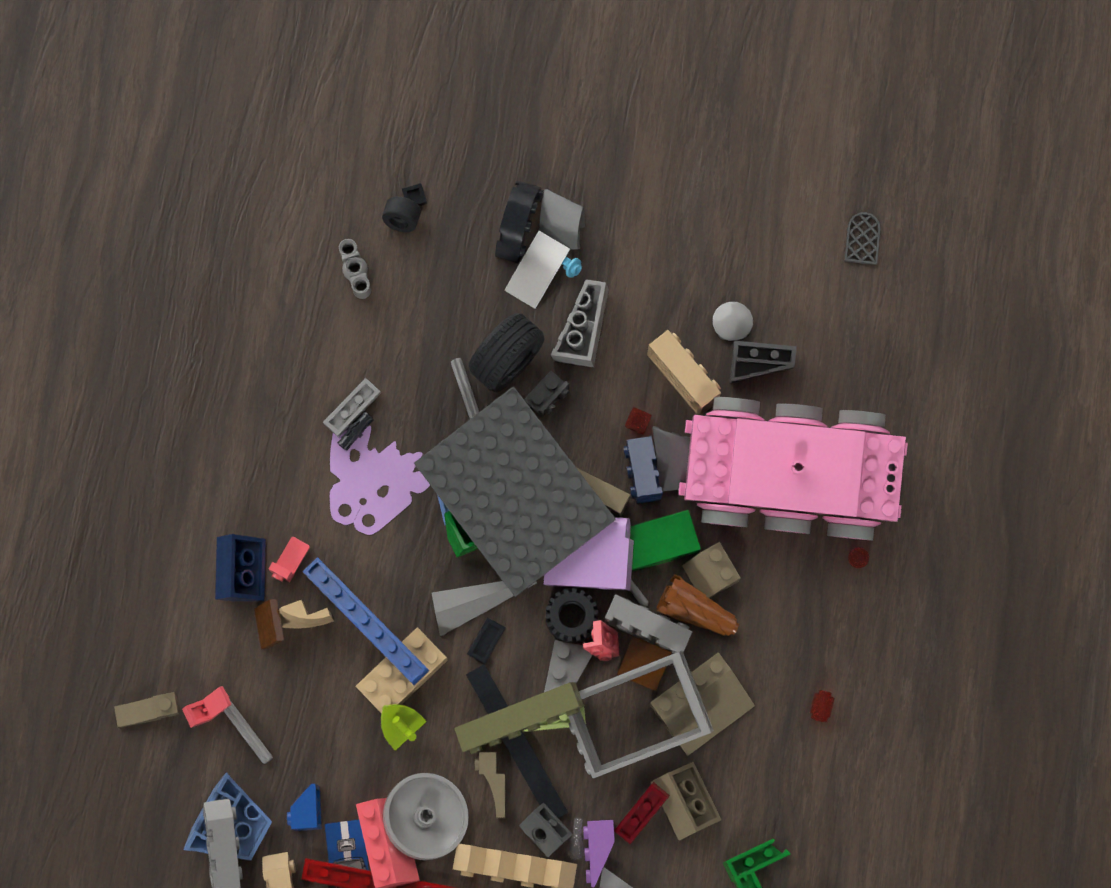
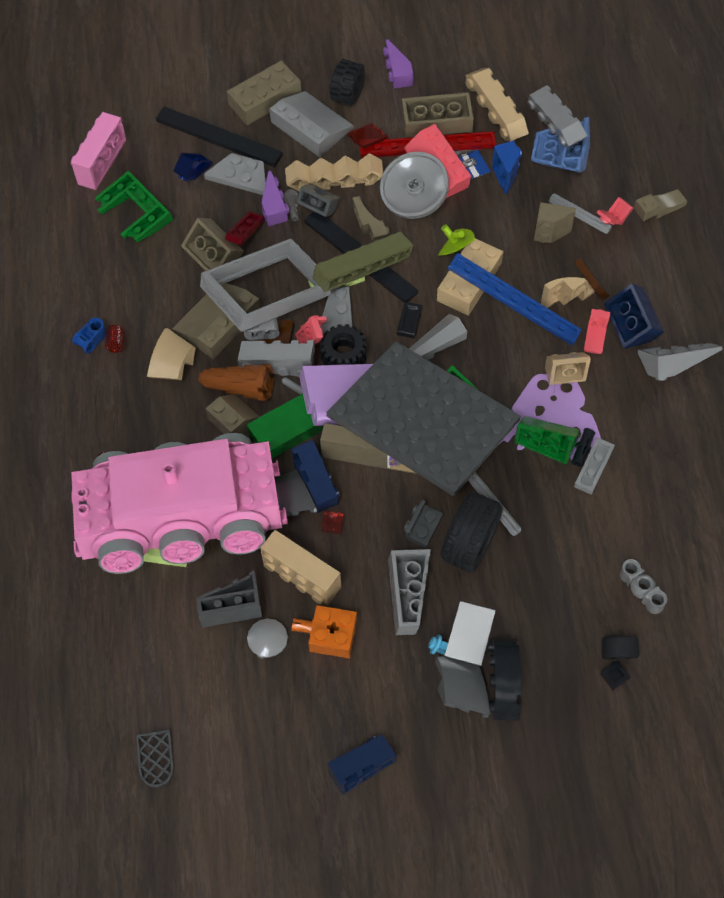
camera: 165 degrees right, 15 degrees down
(221, 504) = (667, 363): none -> light grey wedge
(286, 711) = (553, 222): none -> dark tan slope
(337, 524) = (567, 368): none -> tan slope
(390, 447) = (547, 438): none -> green wedge
(659, 673) = (266, 330): none -> light grey piece
(674, 316) = (324, 622): none -> orange brick
(676, 176) = (361, 763): none -> dark blue wedge
(763, 662) = (170, 356): none -> tan slope
(851, 716) = (88, 337): none -> blue piece

